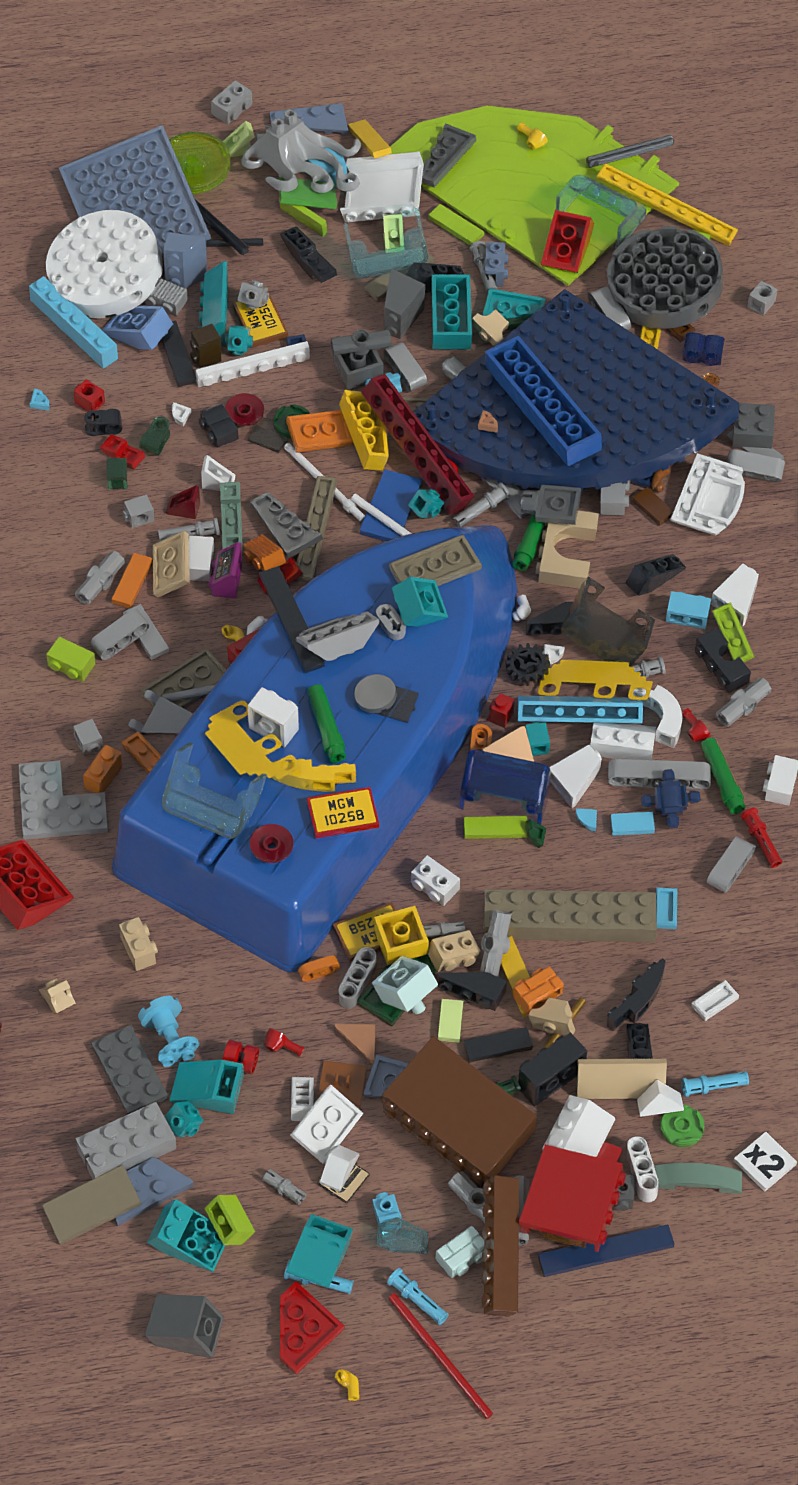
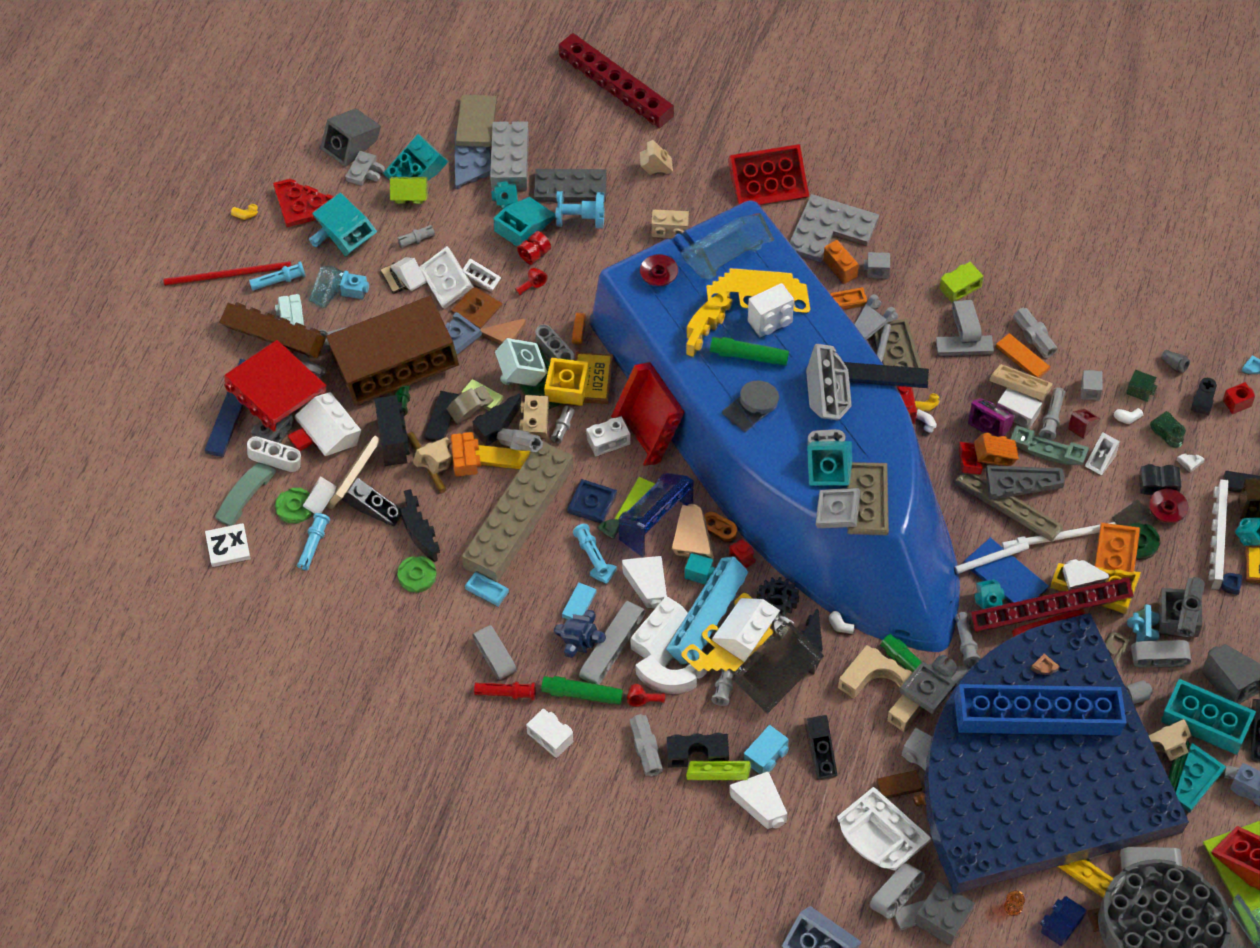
camera: 120 degrees right, 0 degrees up
(71, 456) = (1177, 361): none -> dark grey cone
(118, 447) = (1168, 401): red slope -> none
(158, 473) = (1128, 417): none -> white arm
(221, 1295) = (364, 168): none -> light grey hinge
(342, 812) = (661, 331): tile -> none
(377, 427) = (1082, 574): none -> white slope
(406, 830) = (649, 411): none -> red panel
(463, 580) = (838, 508): none -> light grey tile
(479, 1013) = (468, 403): none -> dark tan brick
(514, 865) = (592, 501): none -> dark blue tile
(567, 840) = (588, 543): none -> medium azure pin
(580, 667) = (745, 626): none -> white slope
(688, 976) = (417, 574): none -> bright green tile
(715, 1000) = (383, 581): white tile -> none

